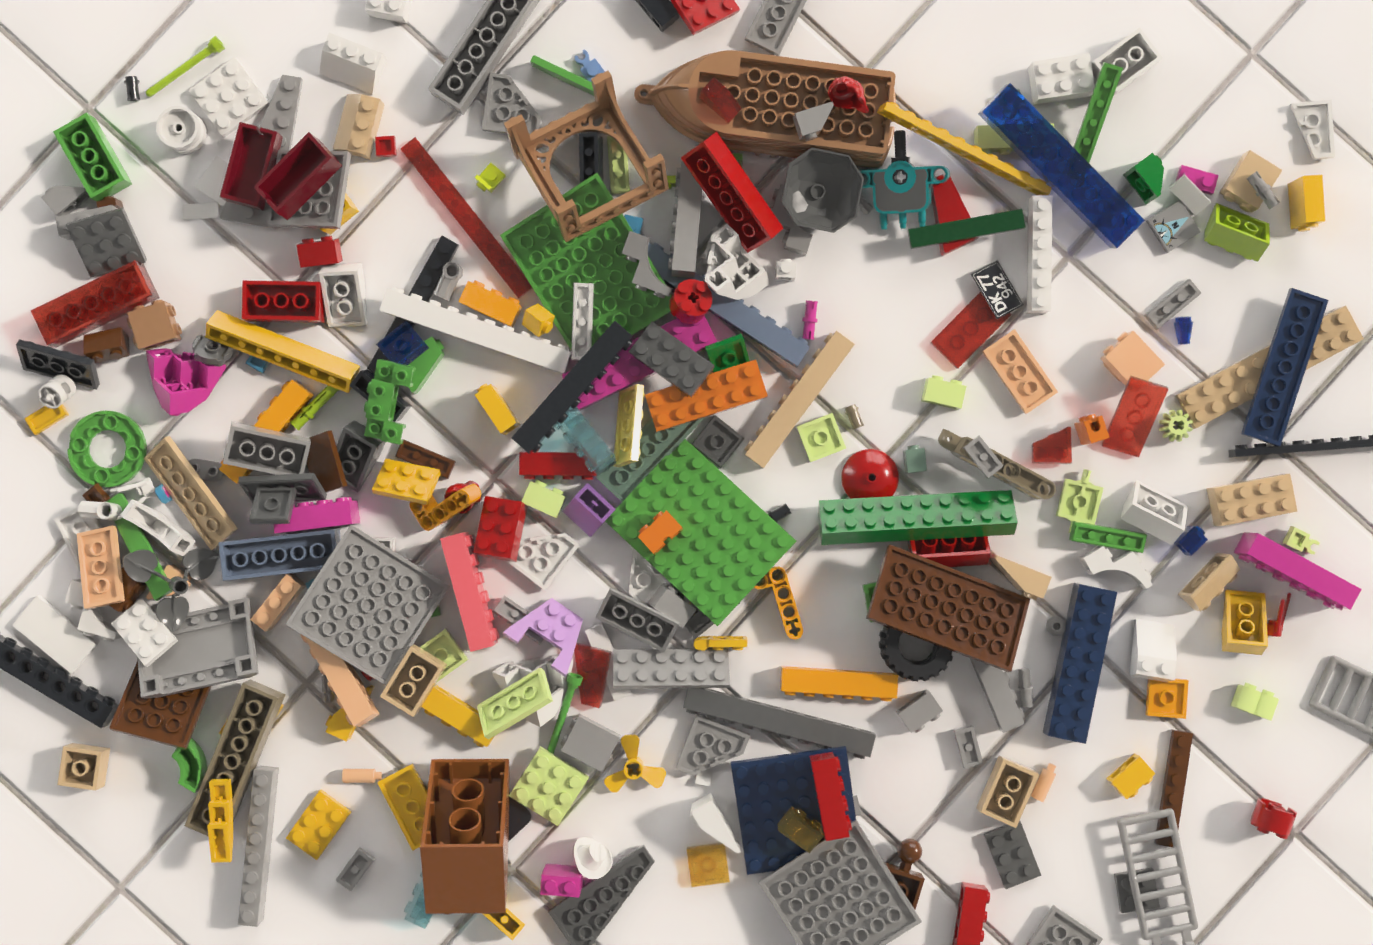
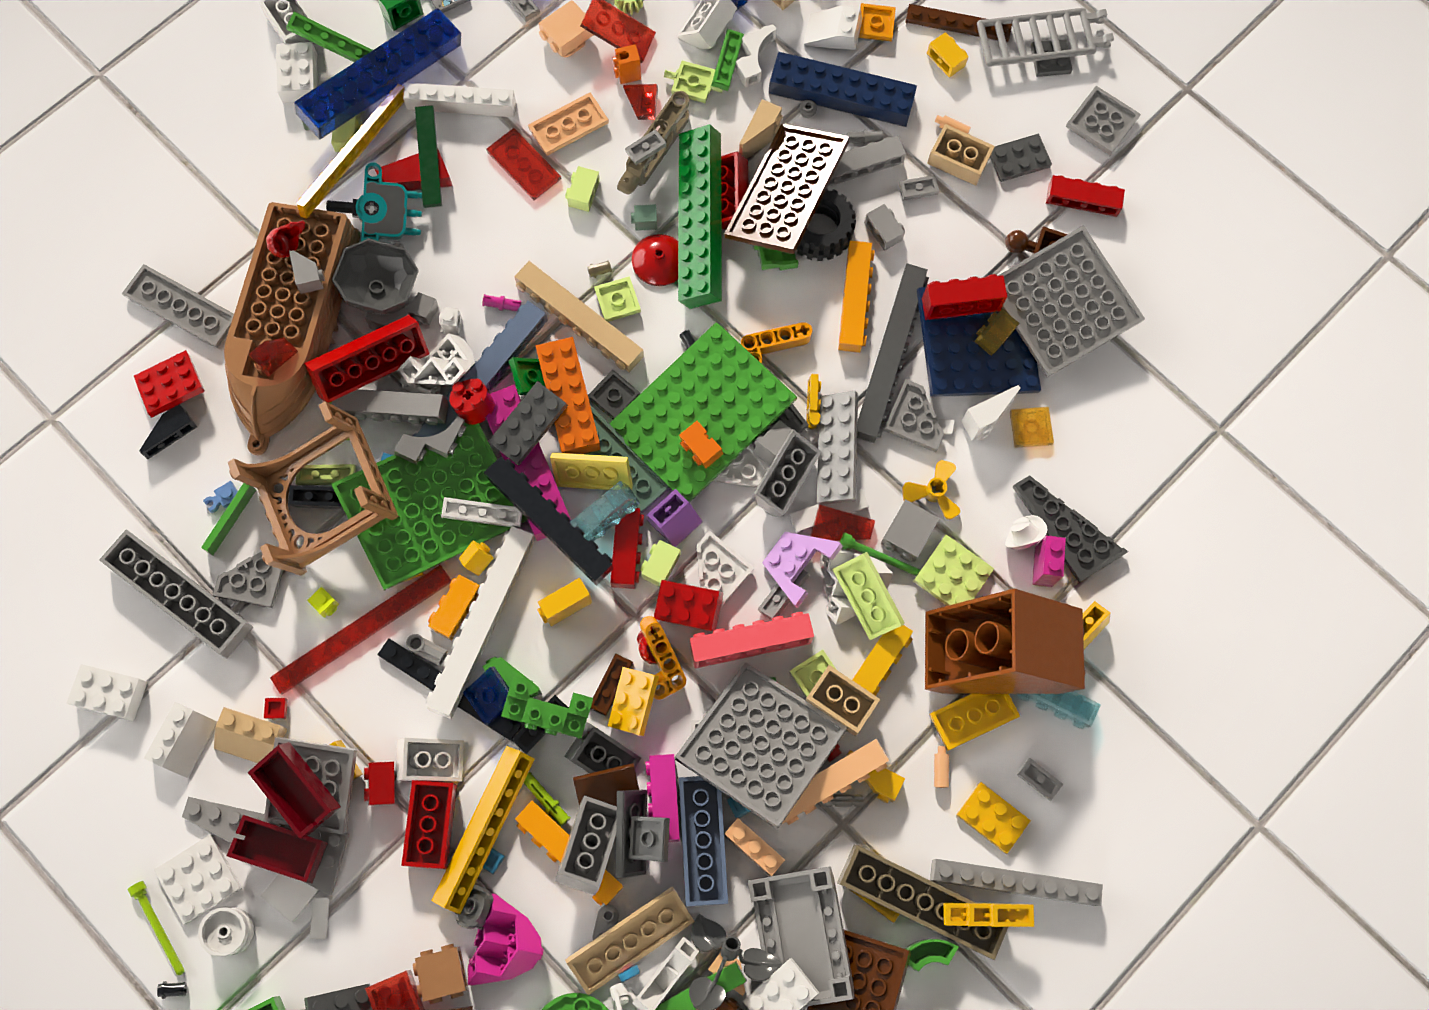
camera: 90 degrees left, 15 degrees down
(997, 289) = (489, 138): black sticker -> none

